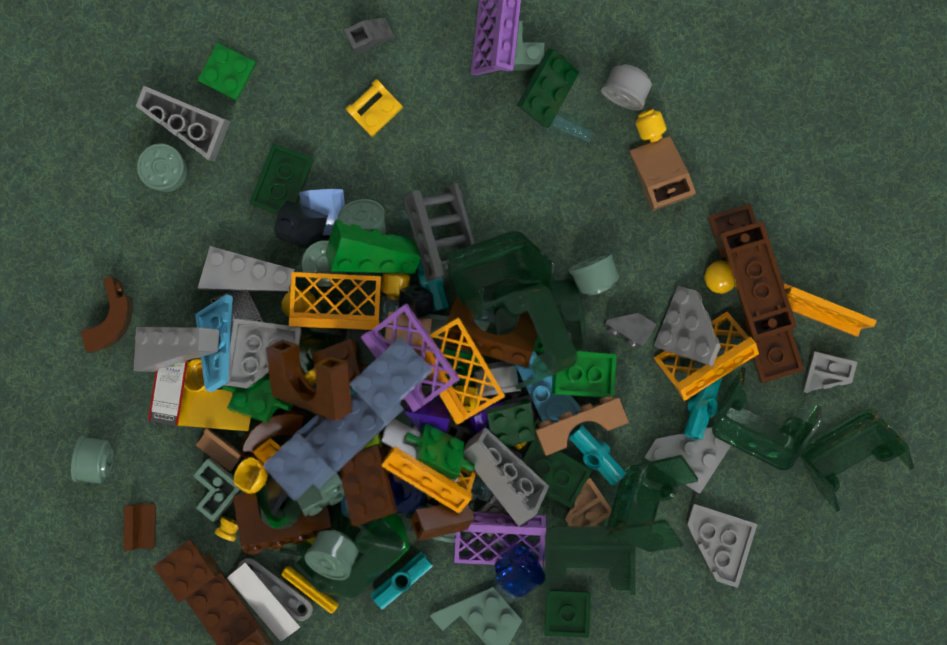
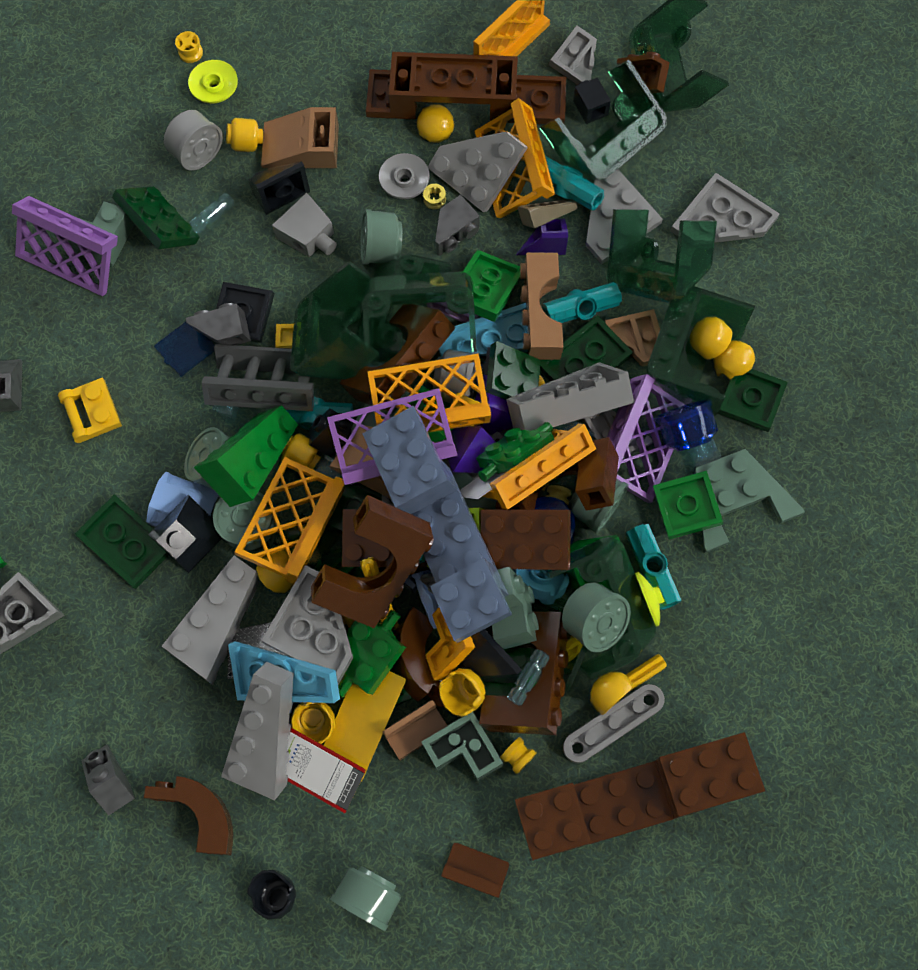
camera: 70 degrees left, 15 degrees down
(73, 394) = (272, 894): none -> black hair
(108, 246) = (106, 780): none -> flat silver slope
(162, 168) = (41, 673): sand green wheel -> none
(263, 602) = (625, 742): white sticker -> none
(273, 521) = (528, 677): none -> clear light blue axle
(290, 581) = (609, 690): none -> yellow hair
(372, 587) = (652, 597): none -> neon yellow dish
(452, 157) = (184, 348): none -> clear blue piece
(458, 591) = (687, 505): none -> green plate
(471, 181) = (222, 325): none -> flat silver slope
(487, 231) = (284, 336): none -> yellow tile
(495, 190) = (255, 304): none -> black plate
(585, 211) = (305, 228): none -> light grey torso
(592, 590) = (735, 360): none -> yellow hair
(601, 566) = (710, 337): none -> yellow hair
(612, 172) = (279, 186): none -> black slope
(650, 405) = (547, 239): none -> dark purple slope
(655, 307) = (434, 188): none -> light yellow bush
(668, 262) = (401, 167): none -> light grey dish
(668, 396) = (541, 213): none -> dark tan slope
(694, 68) = (209, 74): none -> neon yellow dish
(720, 39) = (188, 40): none -> yellow wheel
(788, 399) = (591, 100): none -> black brick
(826, 439) = (650, 68): none -> reddish brown bracket

